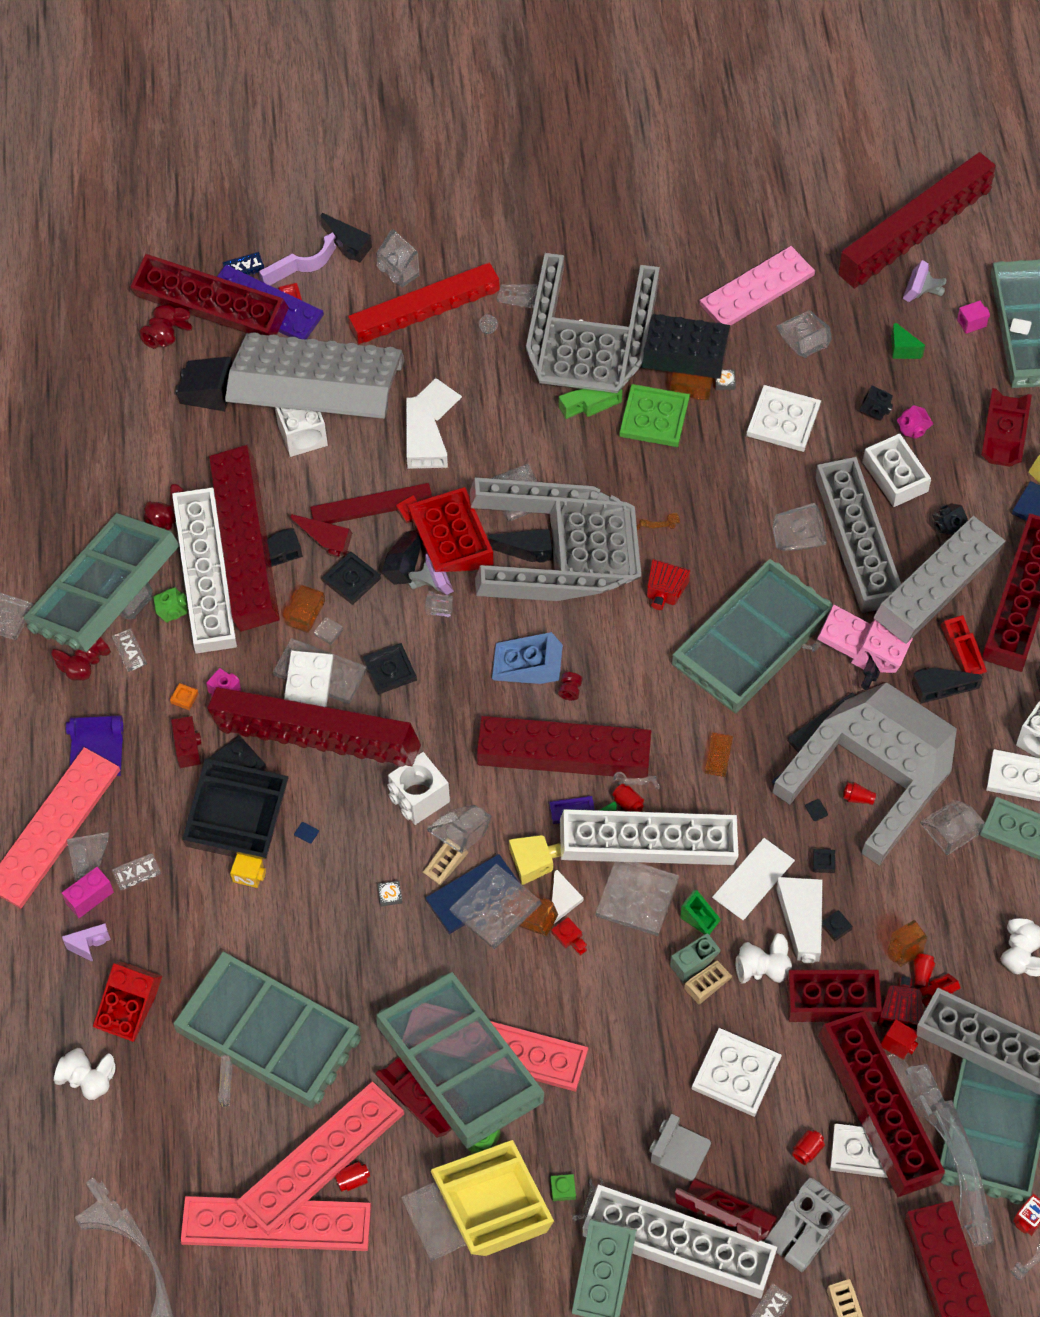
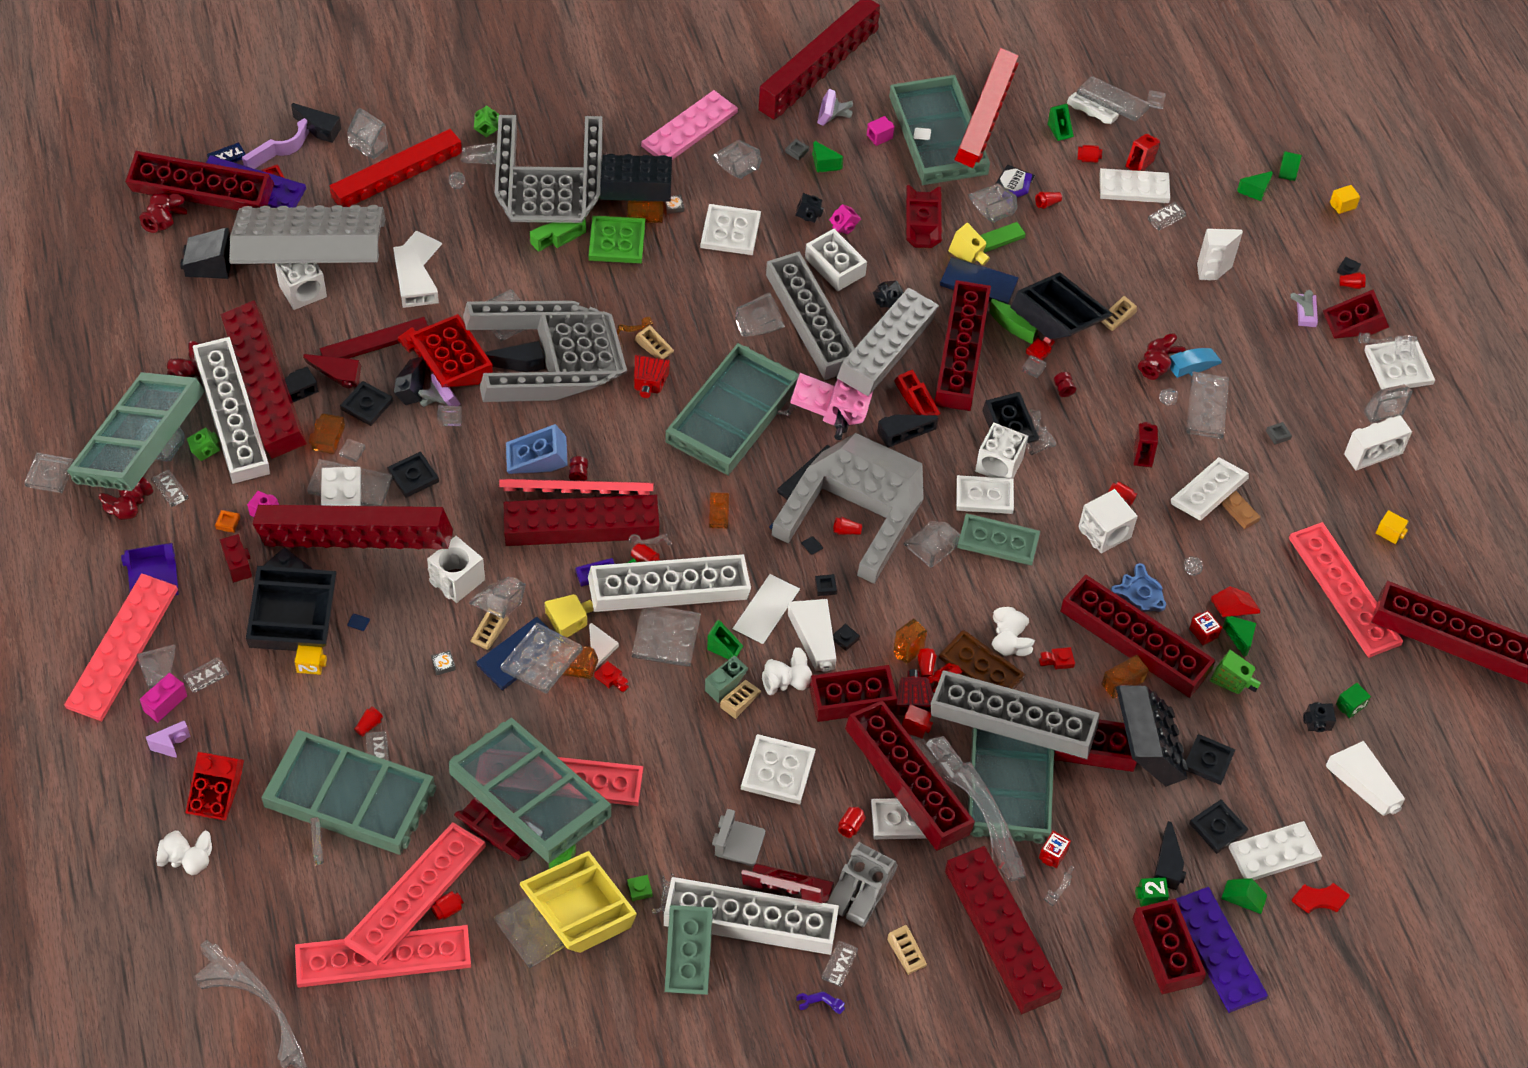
camera: 15 degrees left, 5 degrees down
(300, 950) = (368, 721): none -> red cone
(306, 980) = (377, 744): none -> clear tile
(530, 257) = (486, 121): none -> bright green brick
(573, 708) = (569, 486): none -> coral plate
(678, 537) = (654, 336): none -> tan slope
(874, 328) = (797, 149): none -> dark grey tile
(985, 980) = (980, 662): none -> reddish brown tile

